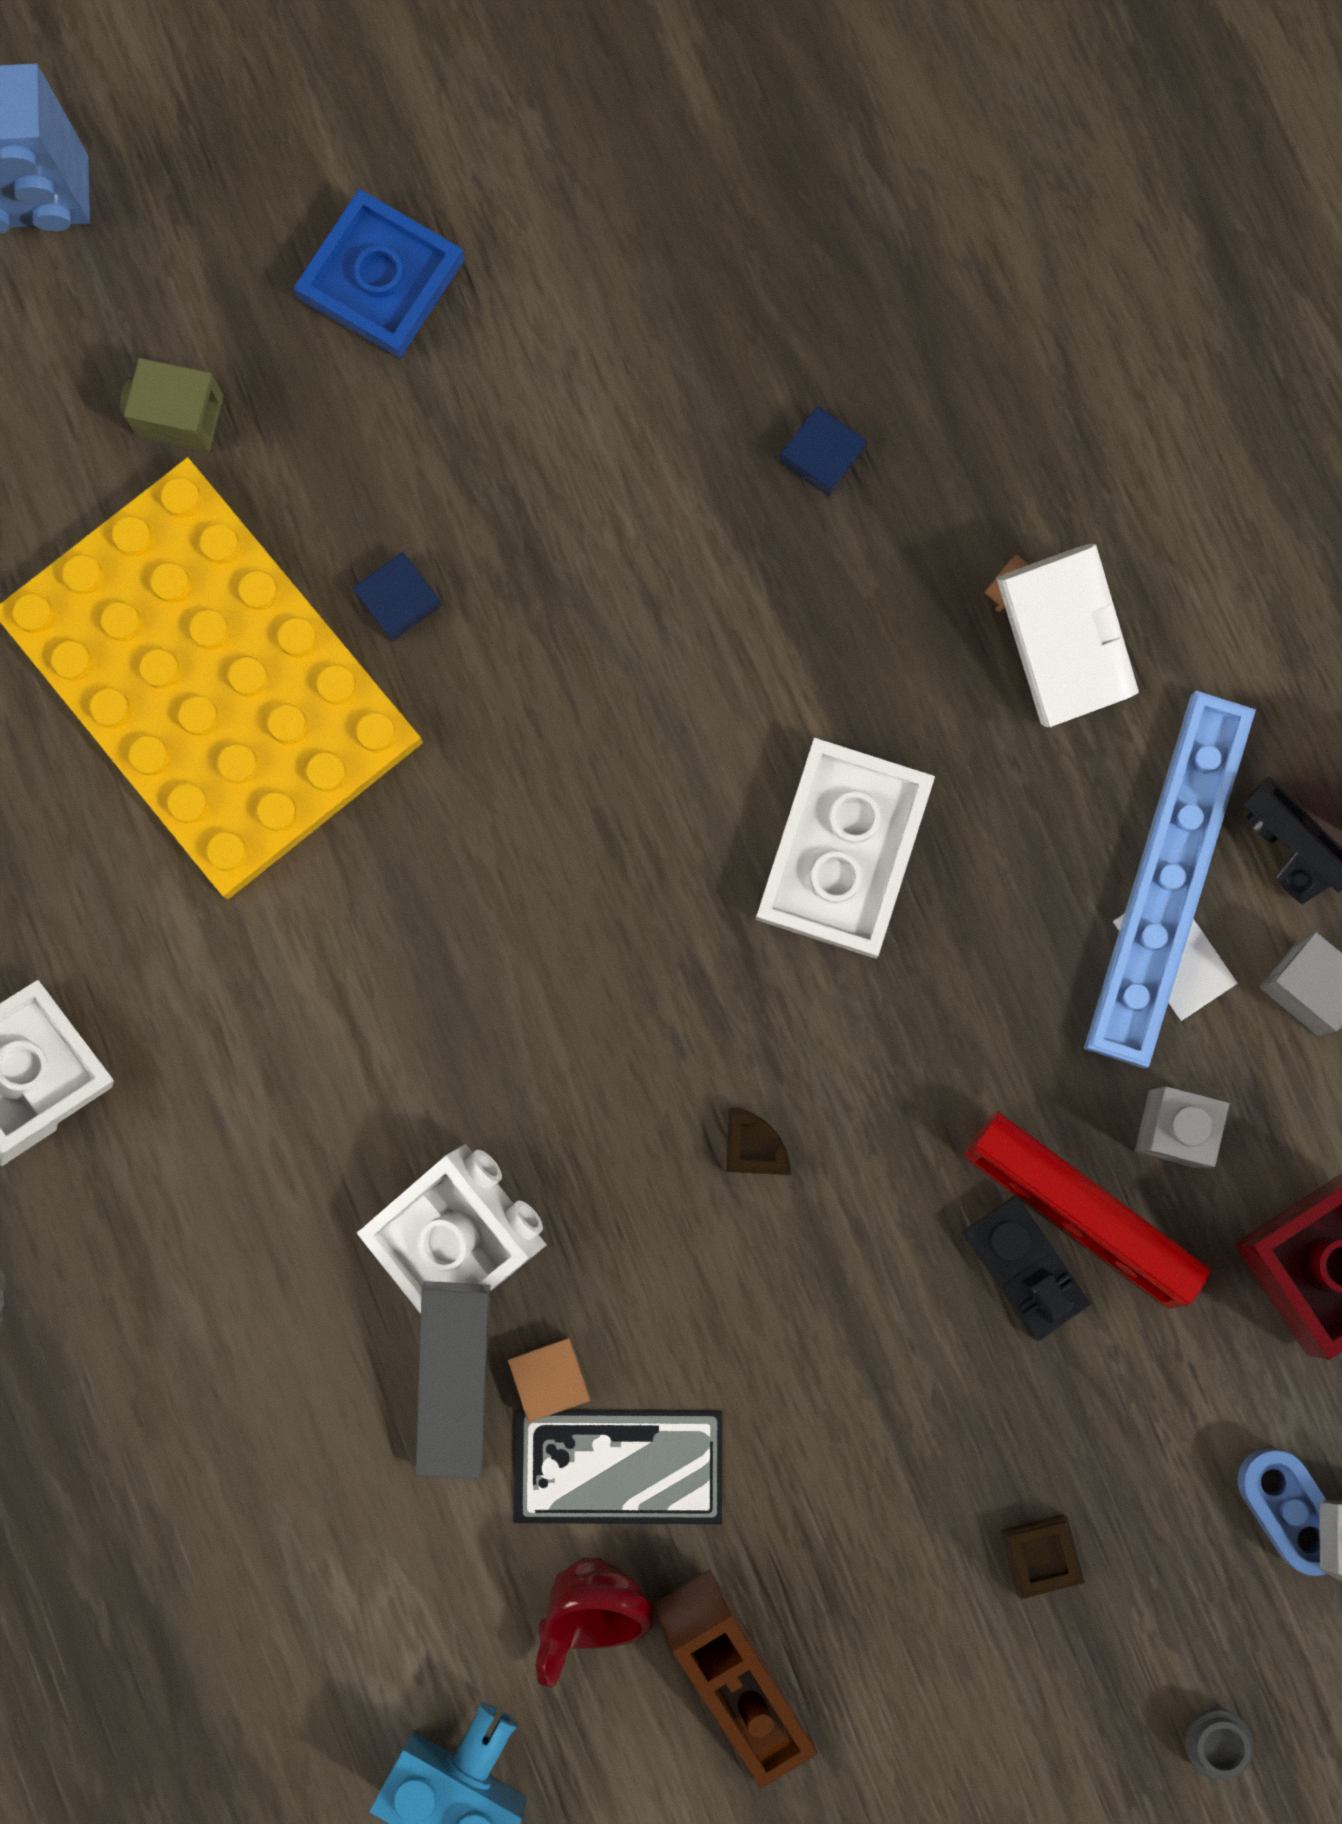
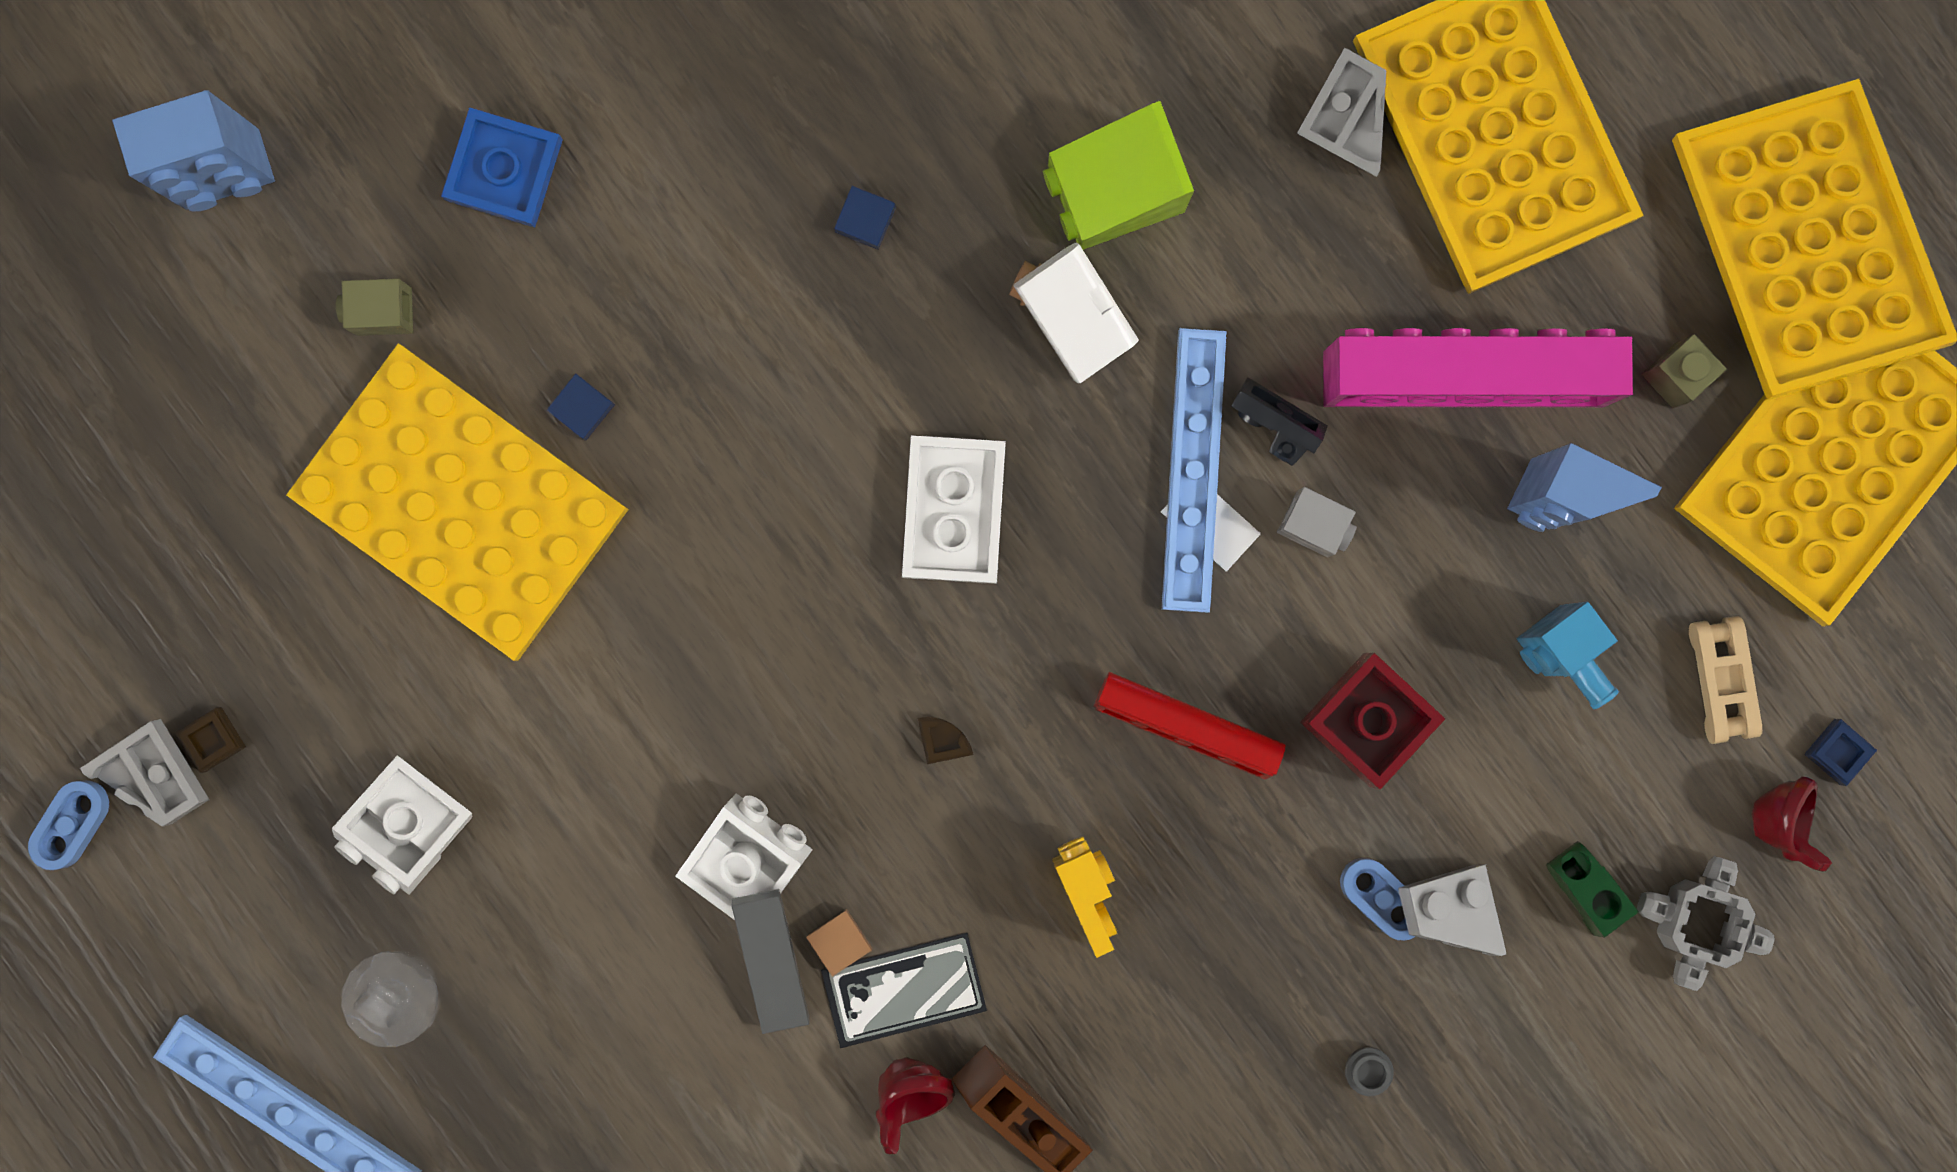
camera: 15 degrees left, 5 degrees up
(899, 1382) = (1086, 881): none -> yellow plate
(1026, 1268) = (1157, 776): black hinge -> none
(1042, 1556) = (1216, 975): dark brown tile -> none
(1169, 477) = (1119, 178): none -> lime slope
(1182, 1127) = (1242, 650): light grey brick -> none

